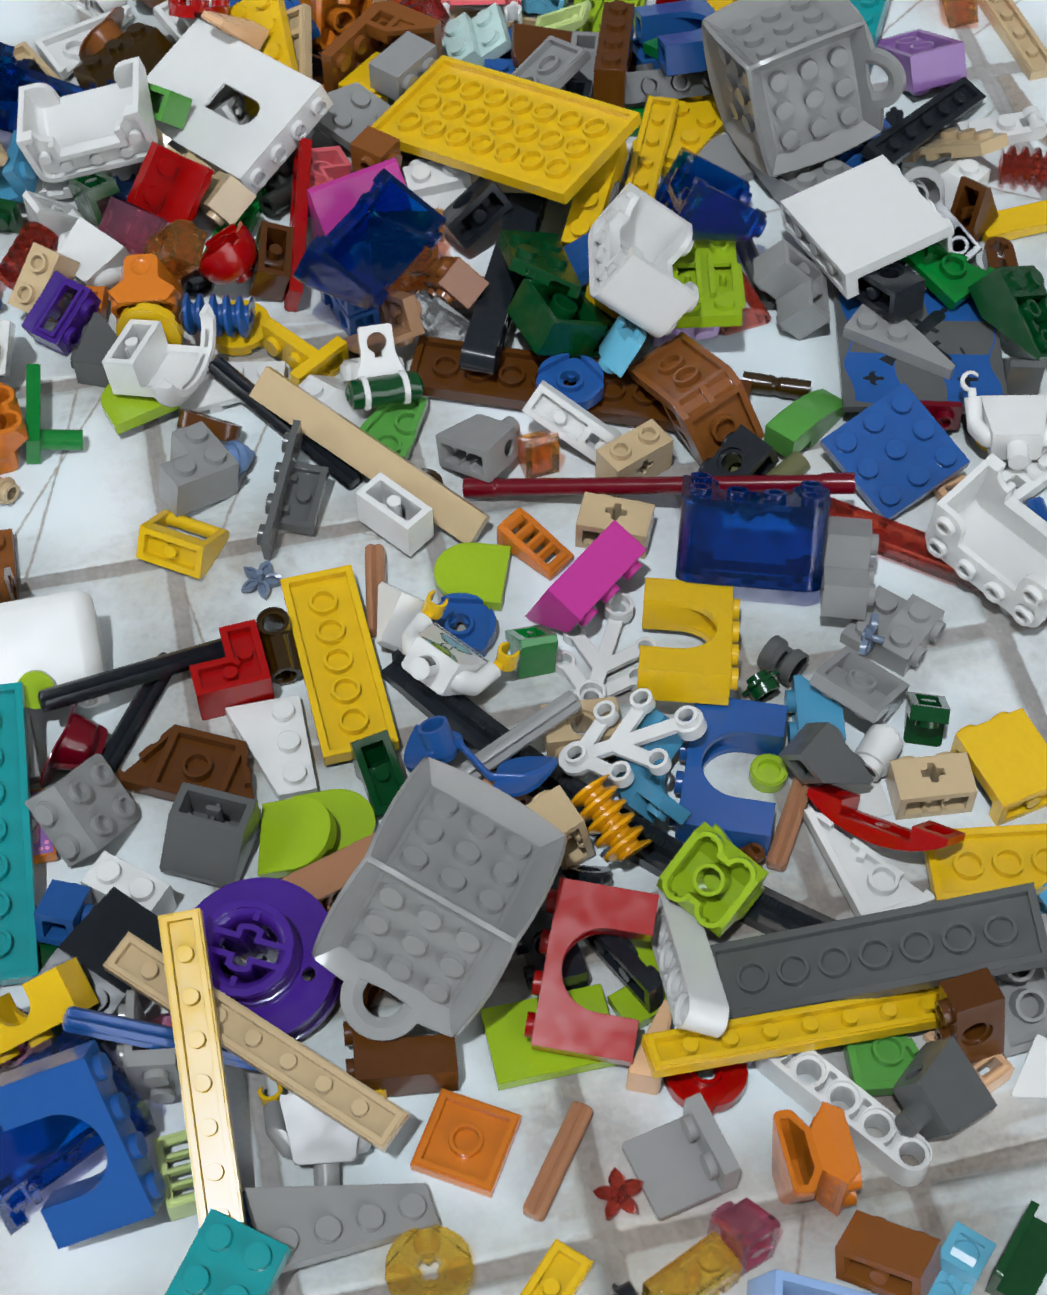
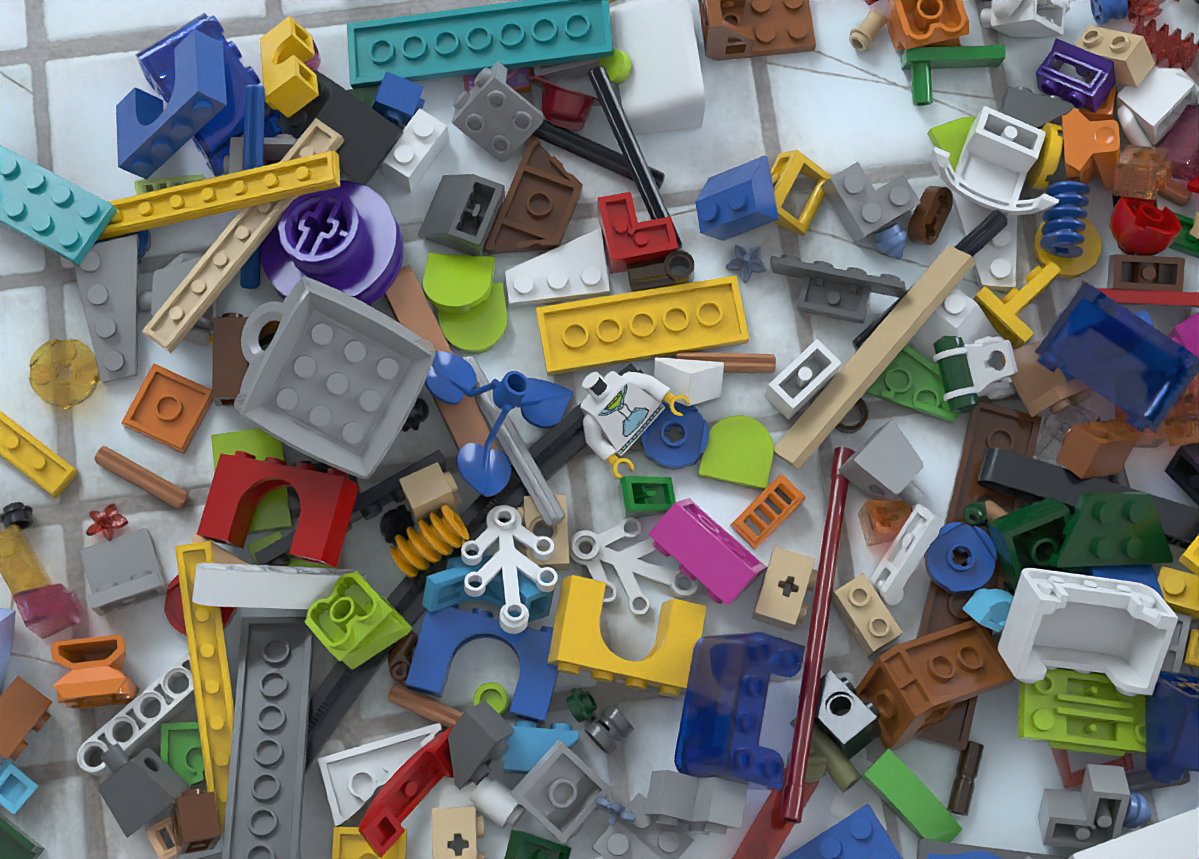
camera: 90 degrees right, 20 degrees up
(192, 575) = (737, 200): none -> blue slope
(378, 769) = (511, 353): dark green slope -> none
(521, 366) = (982, 512): none -> dark green arm

